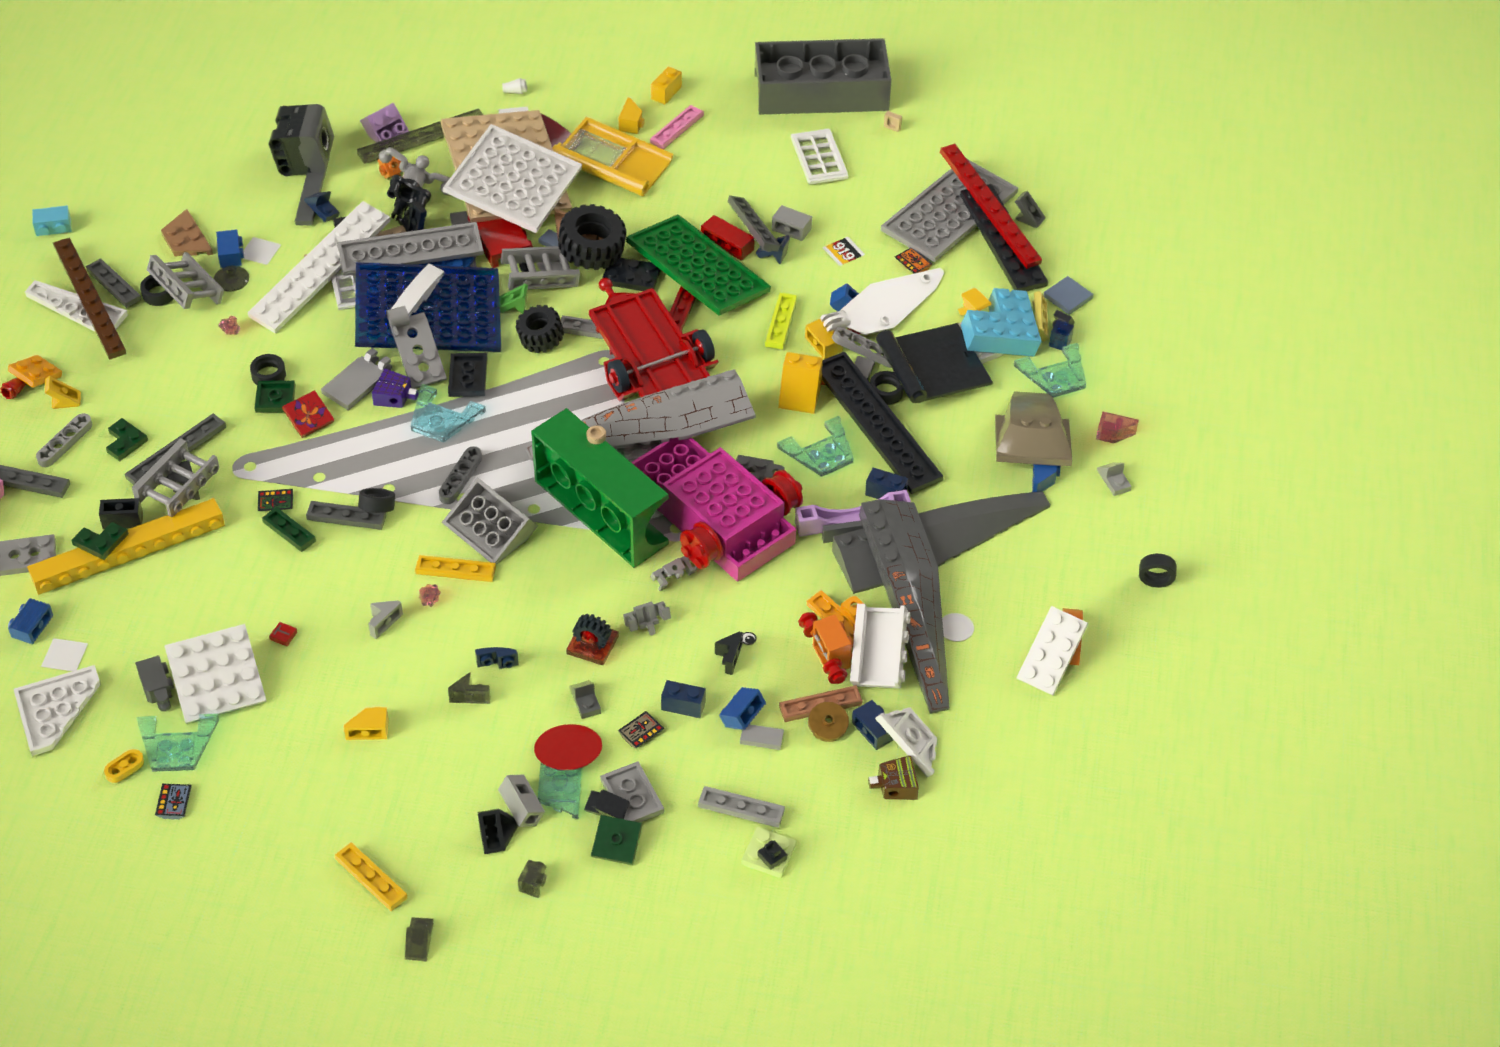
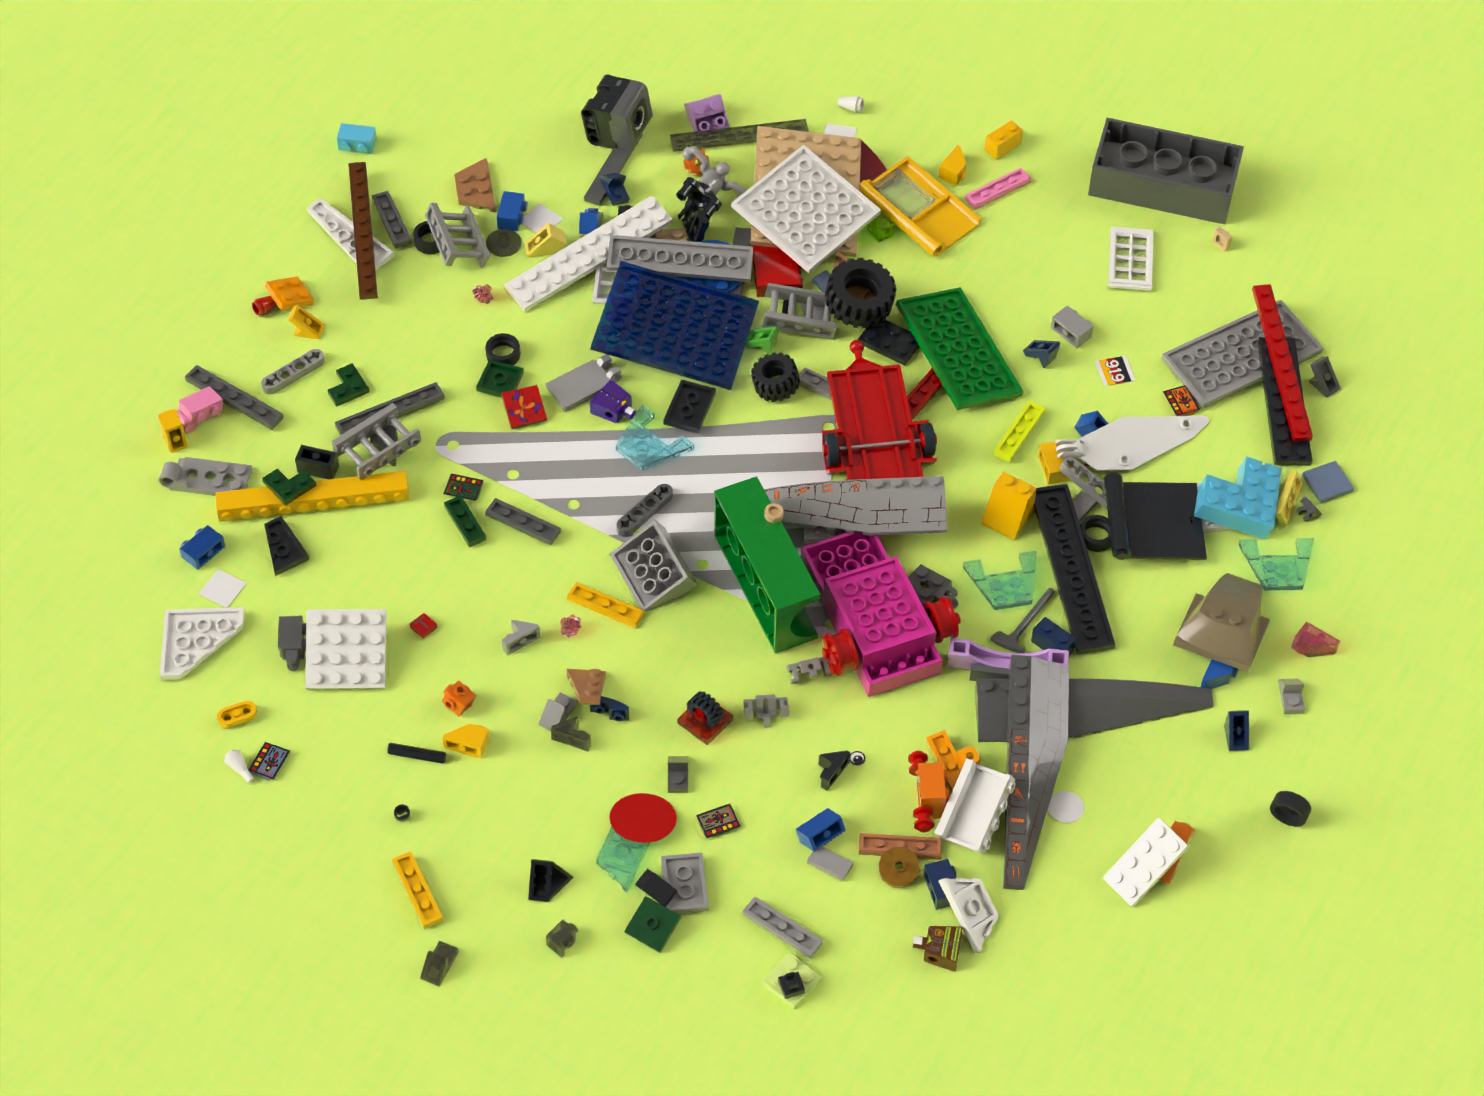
camera: 20 degrees right, 5 degrees up
(114, 598) = (284, 546): none -> black wing
(139, 809) = (236, 761): none -> white cone
(176, 750) = (286, 712): clear light blue wing -> none
(273, 266) = (545, 241): none -> light yellow slope
(309, 238) = (589, 220): none -> blue slope
(321, 751) = (416, 753): none -> black axle
(325, 807) = (400, 809): none -> black hinge
(345, 688) = (458, 698): none -> orange brick
(376, 500) = (554, 515): black tyre -> none
(400, 324) = (637, 342): light grey hinge -> none
(419, 289) = (665, 309): white slope -> none
(445, 675) = (557, 710): none -> light grey slope
(468, 641) = (587, 684): none -> medium nougat wing
(521, 800) = (579, 858): light grey brick -> none
(585, 182) = (881, 228): none -> clear neon green brick
(683, 699) = (768, 802): dark blue brick -> none
(728, 237) = (1001, 326): red brick -> none
(753, 223) = (1030, 318): dark grey plate -> none
(848, 499) = (1010, 641): none -> dark grey piece
(973, 300) = (1221, 465): yellow slope -> none
(1061, 335) = (1300, 525): brick -> none
(1081, 518) = (1237, 730): none -> dark blue slope

